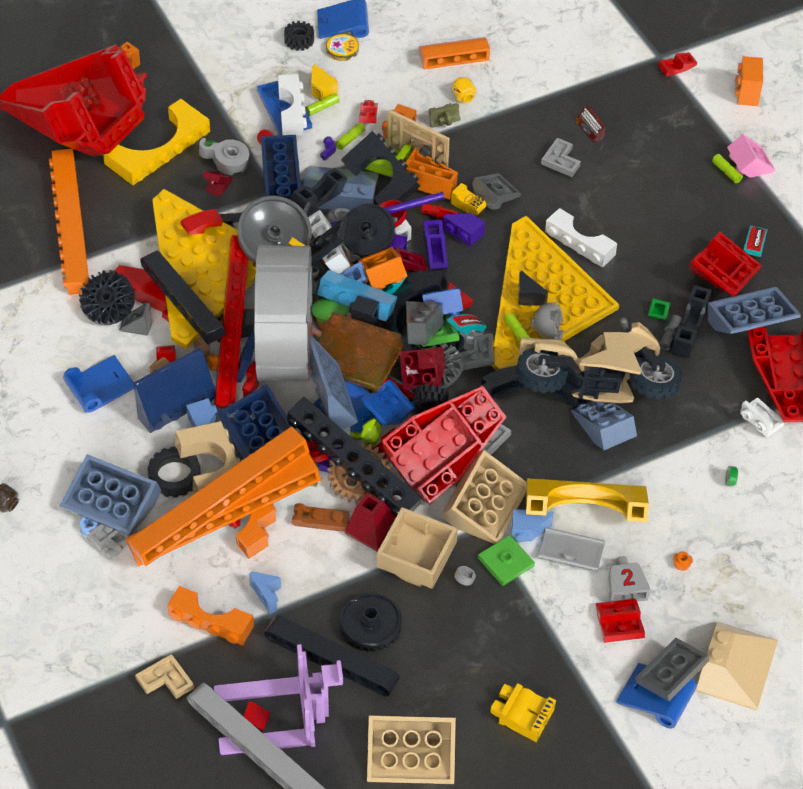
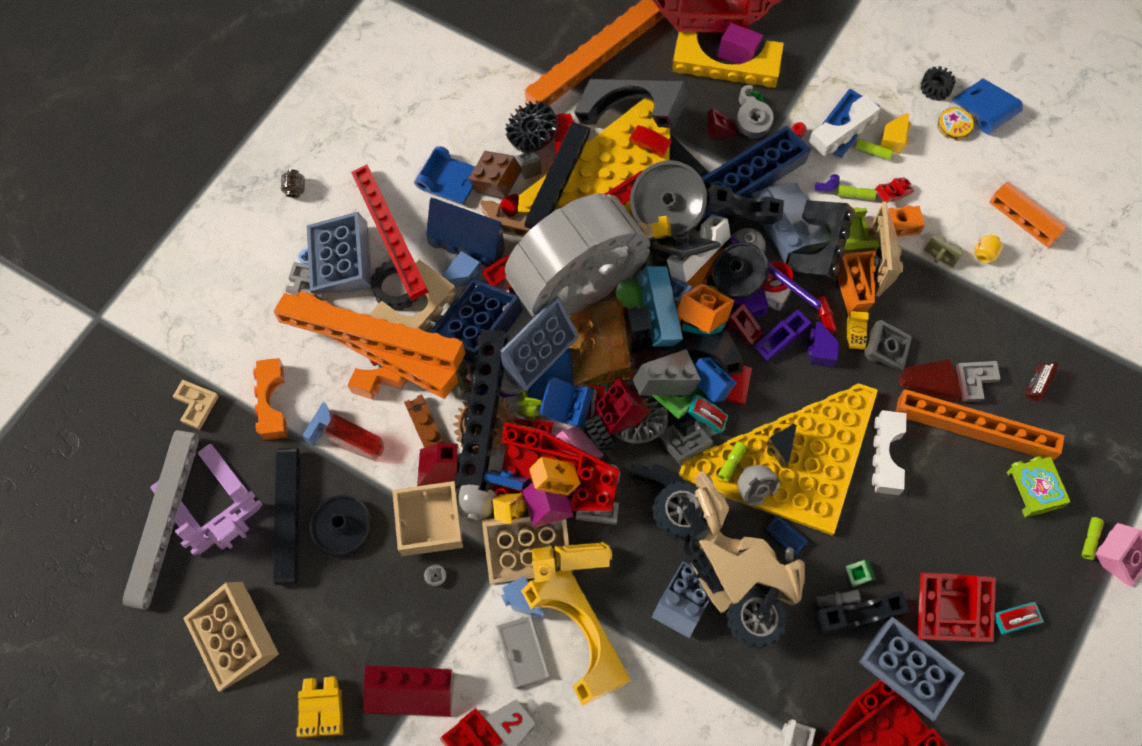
camera: 60 degrees right, 15 degrees up
(121, 233) = (602, 94): none -> black arch
(126, 440) = (390, 233): none -> red plate
(131, 345) = (495, 174): none -> reddish brown brick
(156, 126) = (739, 44): none -> magenta slope
(256, 715) = (196, 492): red slope -> none
(300, 569) = (354, 438): none -> clear red slope
(423, 476) = (506, 479): none -> blue plate
(429, 504) = (475, 503): none -> light grey cylinder
(452, 484) = (509, 507): none -> yellow slope
(454, 431) = (554, 476): none -> light orange brick
(466, 456) = (546, 506): none -> magenta slope
(506, 560) = (475, 601): bright green plate -> none
(519, 482) = (543, 564): none -> yellow window
(525, 463) = (583, 556): none -> yellow window
(544, 181) = (932, 379): none -> clear red slope
(550, 640) = (408, 691): none -> dark red slope
(589, 335) = (786, 535): none -> dark blue tile
(599, 175) = (980, 425): none -> orange brick
(669, 170) = (1039, 485): none -> panel

